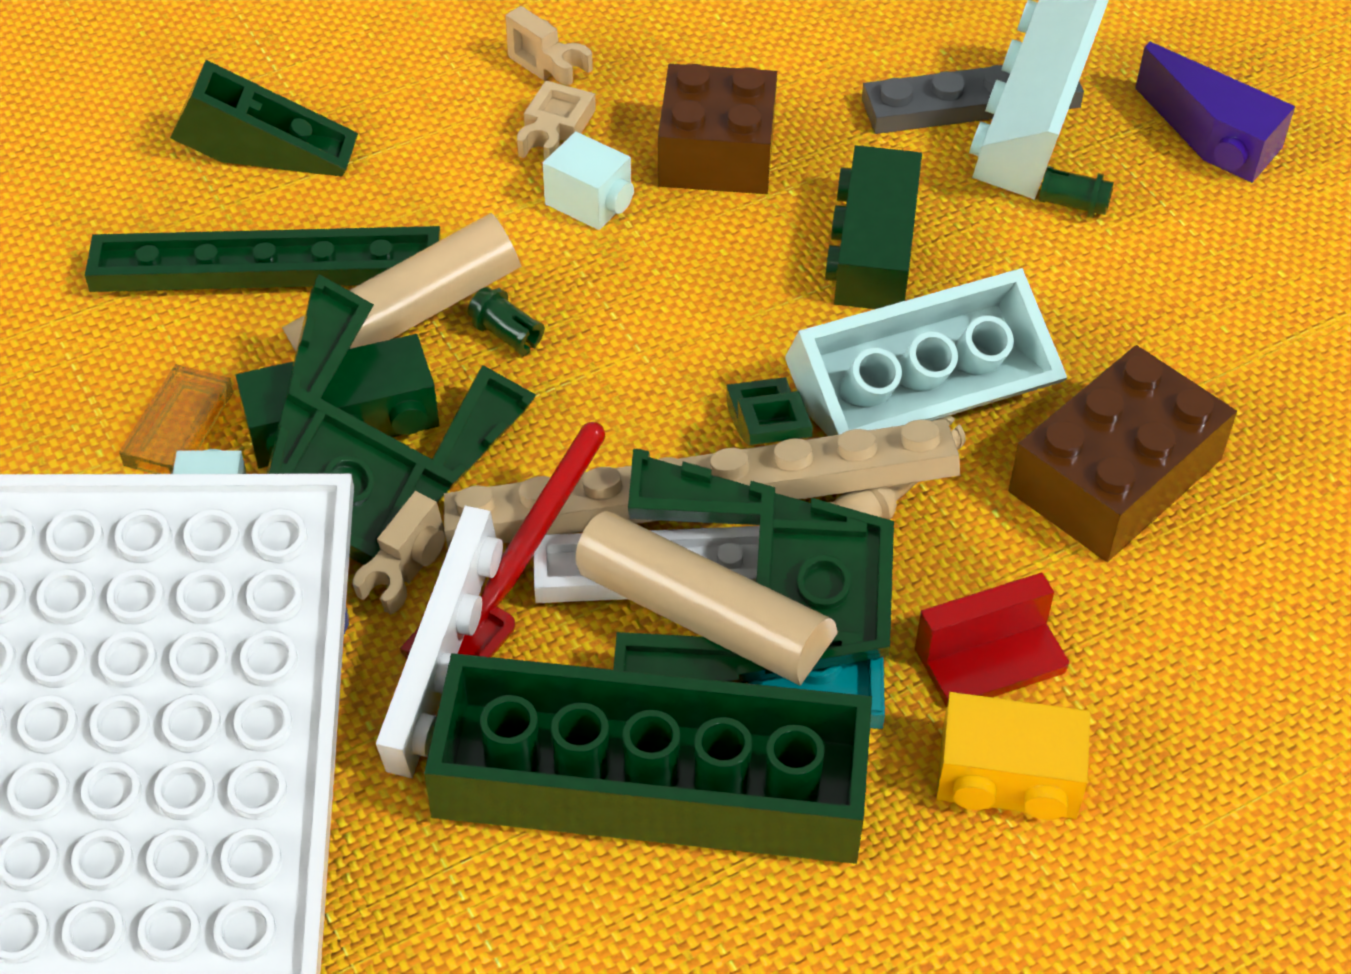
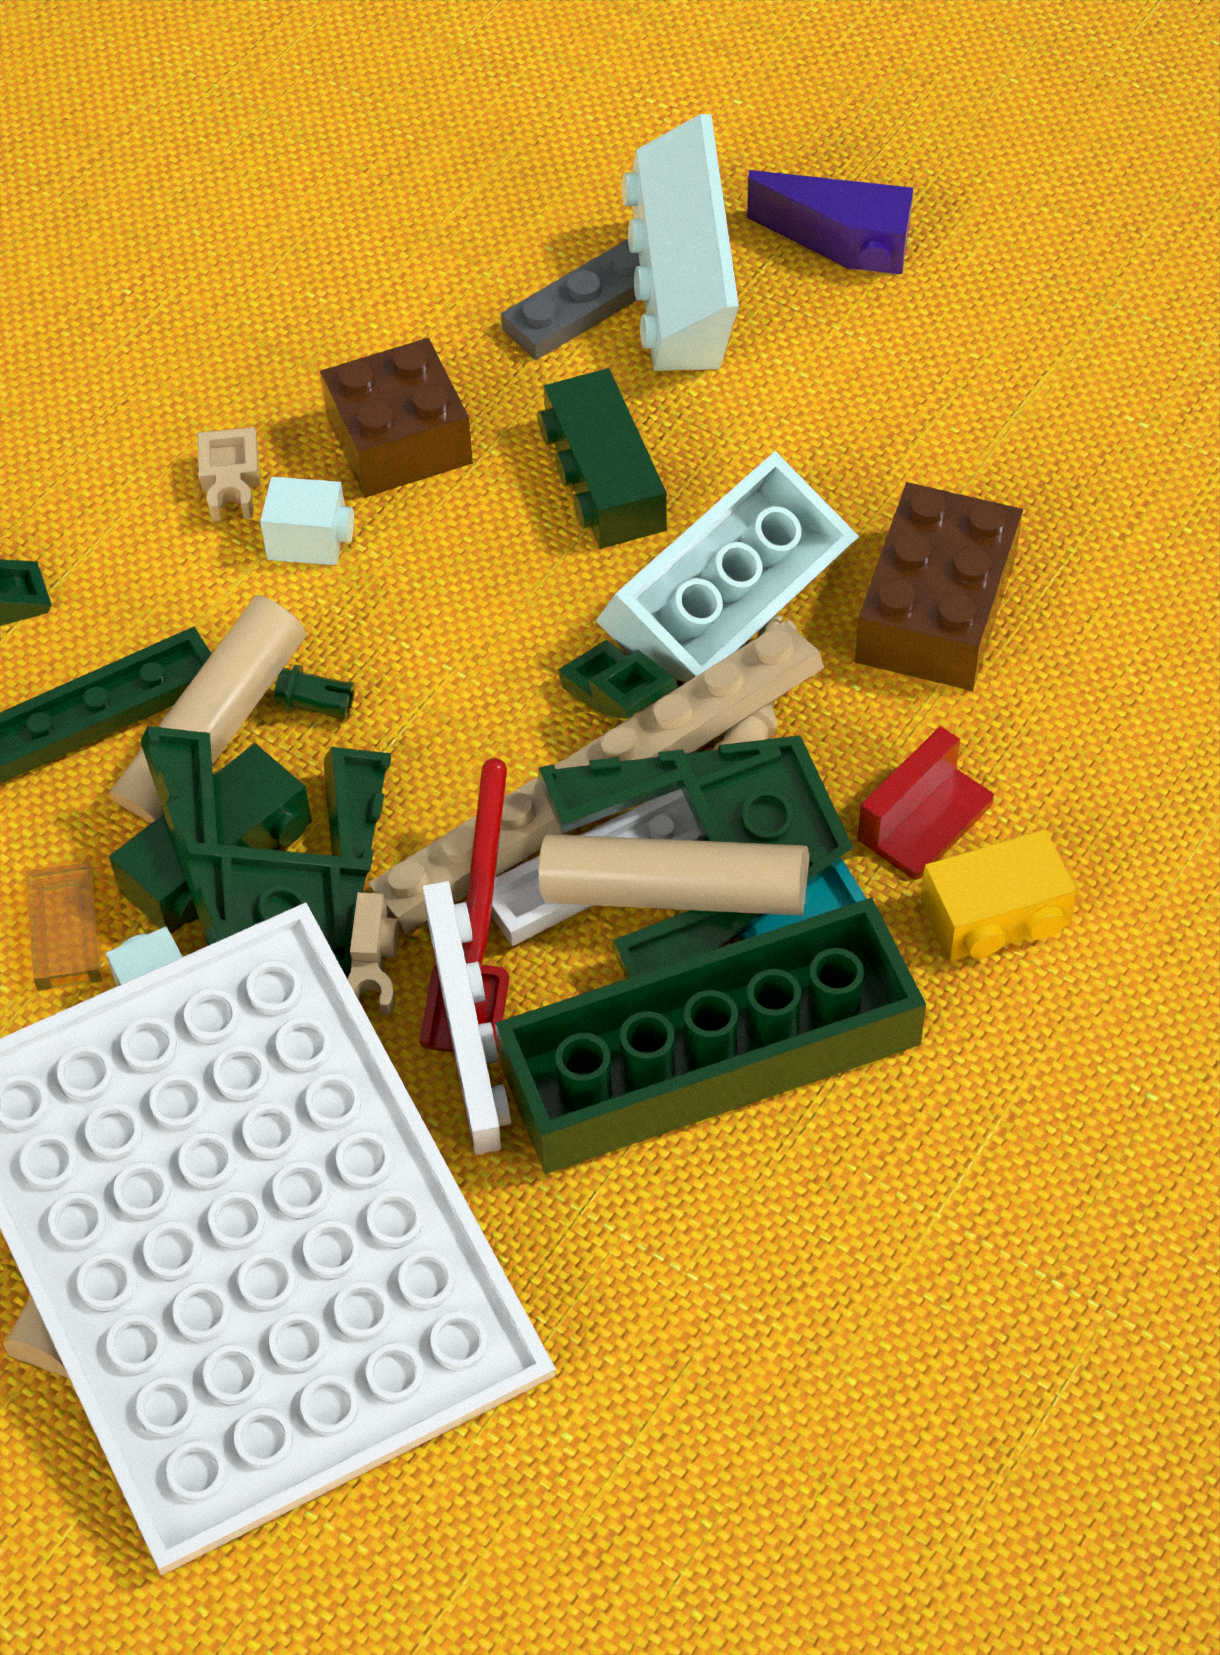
camera: 25 degrees left, 5 degrees up
(536, 47) = (164, 400): tan plate -> none
(1076, 191) = (760, 347): dark green pin -> none

